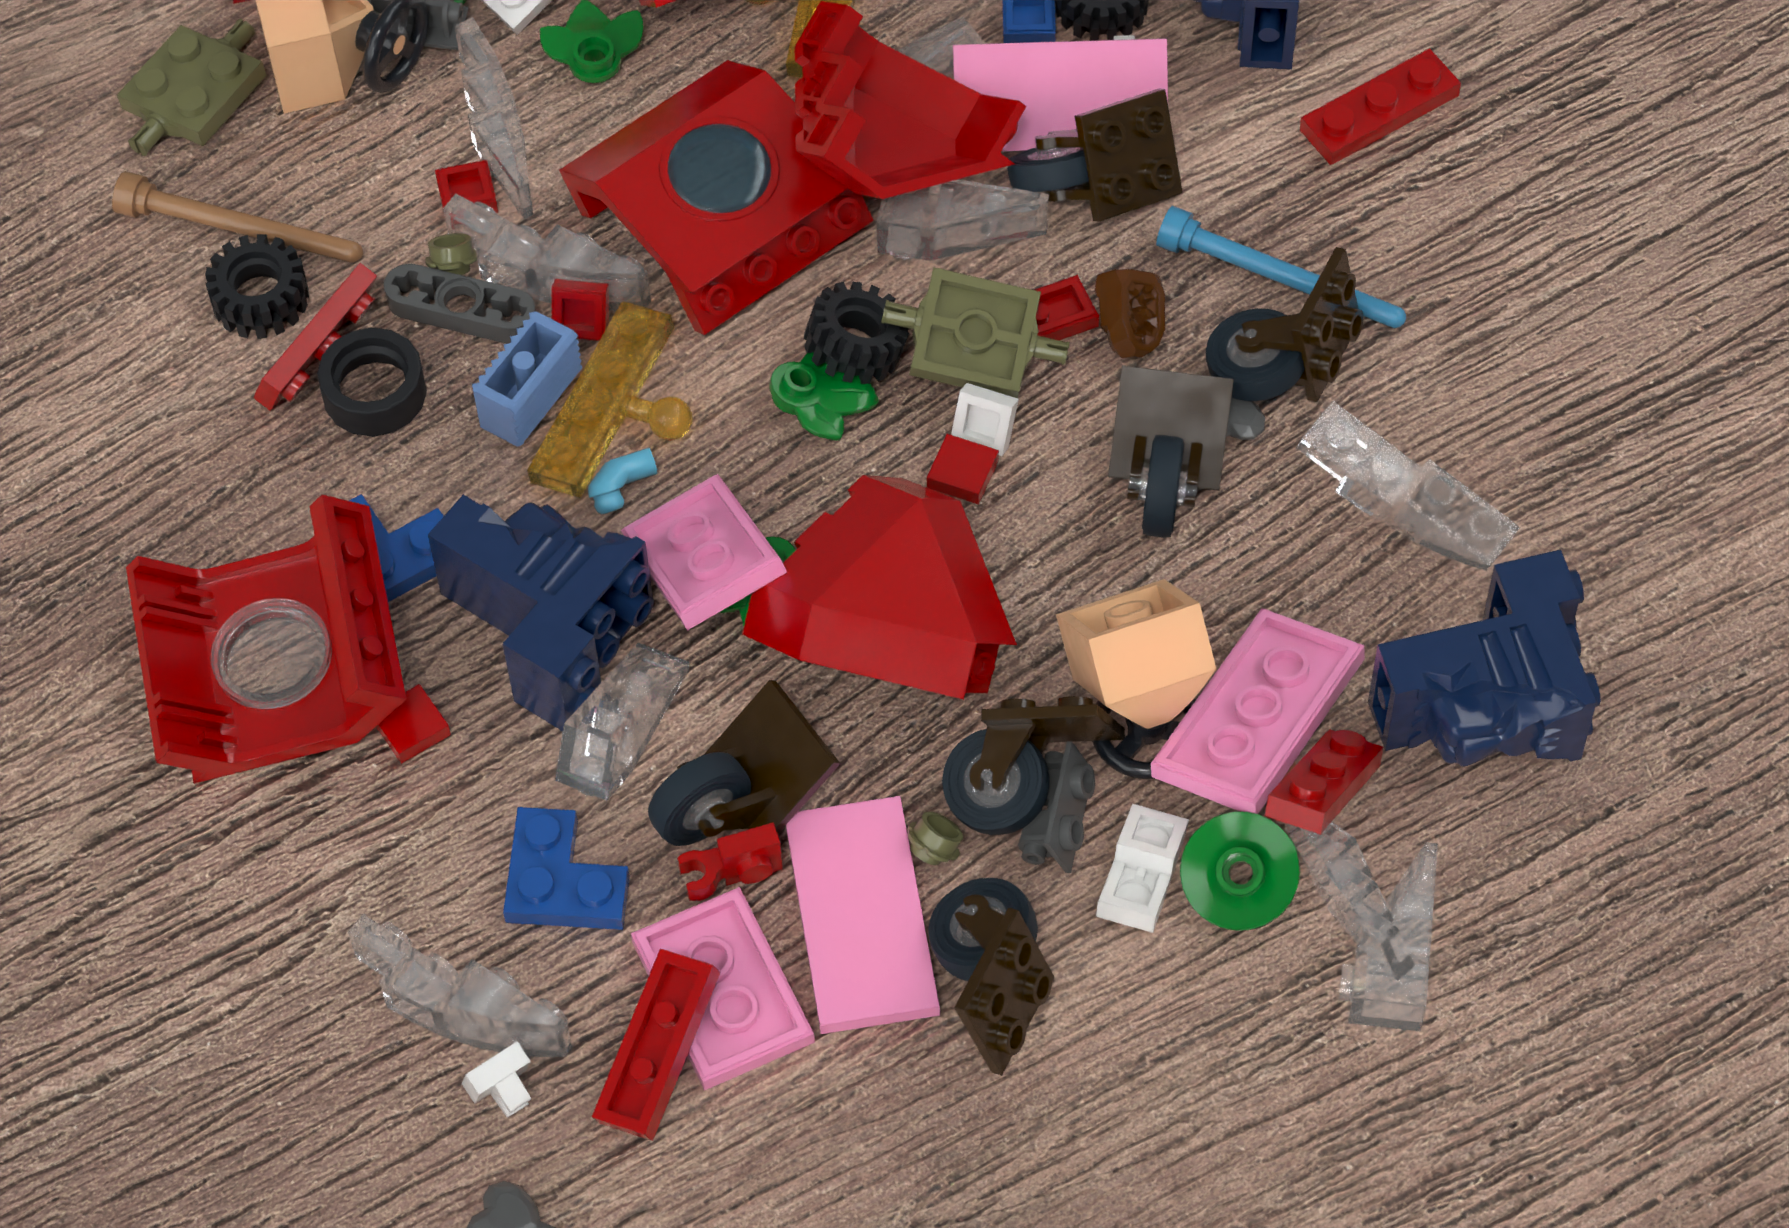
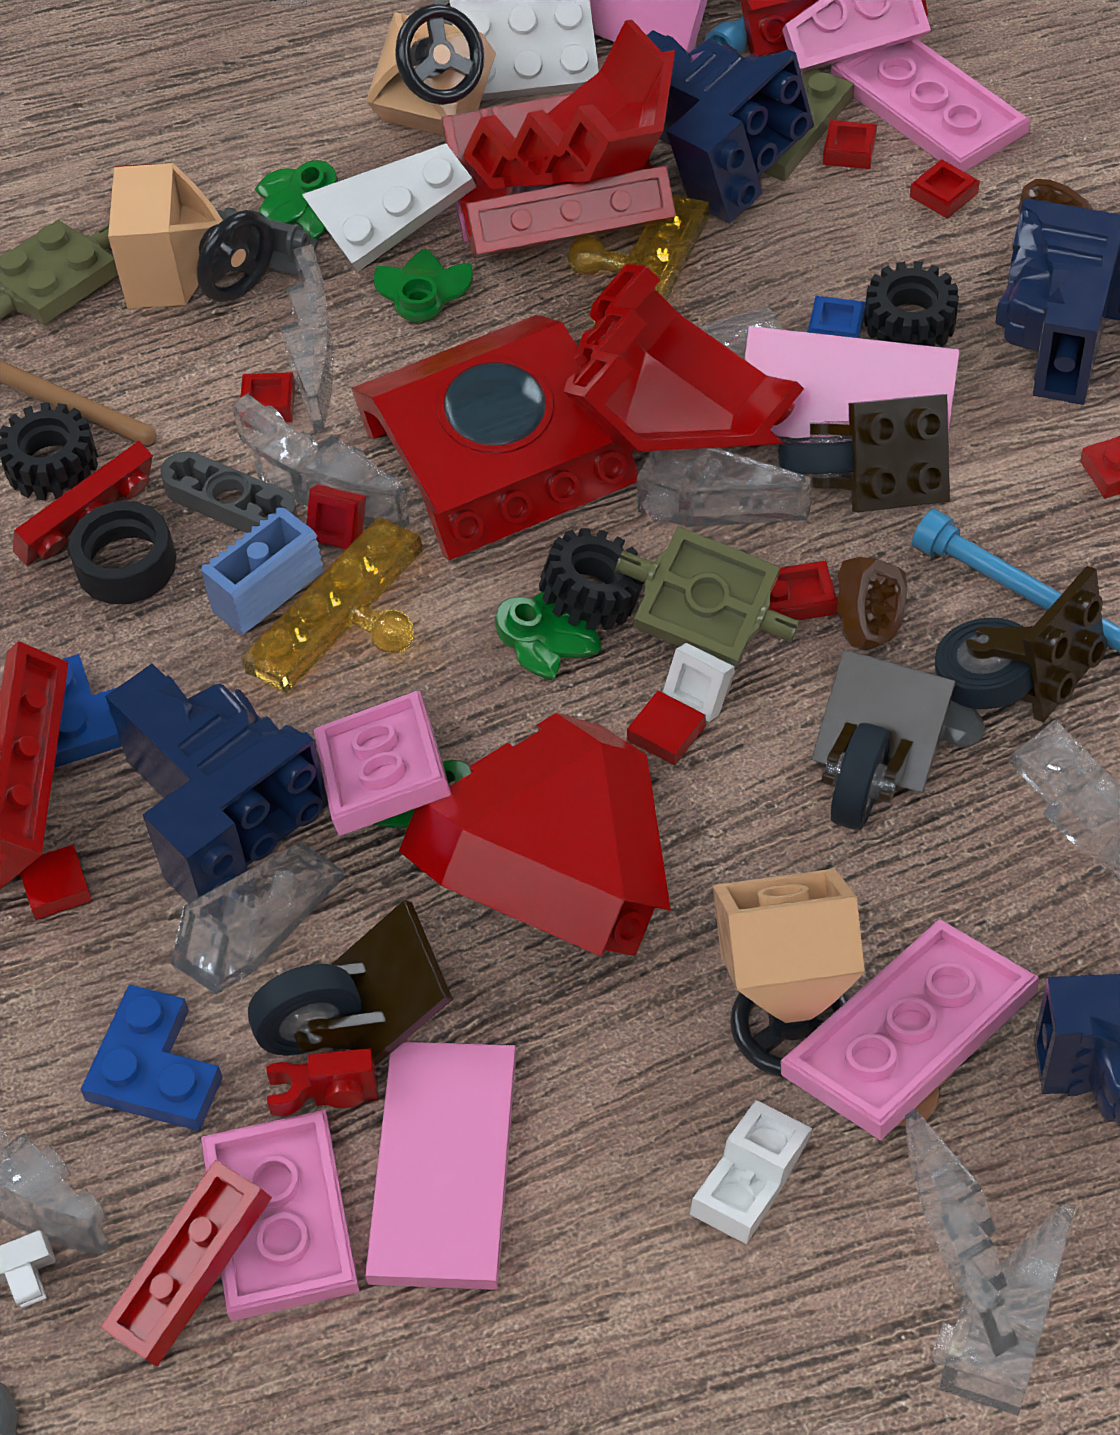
camera: 15 degrees right, 5 degrees down
(451, 253) = (232, 449): olive plate -> none
(616, 474) = (327, 675): medium azure arm -> none
(934, 838) = (538, 1097): olive plate -> none
(989, 938) = (563, 1222): dark brown plate -> none
(998, 774) = (621, 1041): plate -> none
(1060, 827) = (688, 1068): dark grey hinge -> none
(1231, 841) = (819, 1190): green dish -> none
(1324, 780) = (962, 1115): red plate -> none

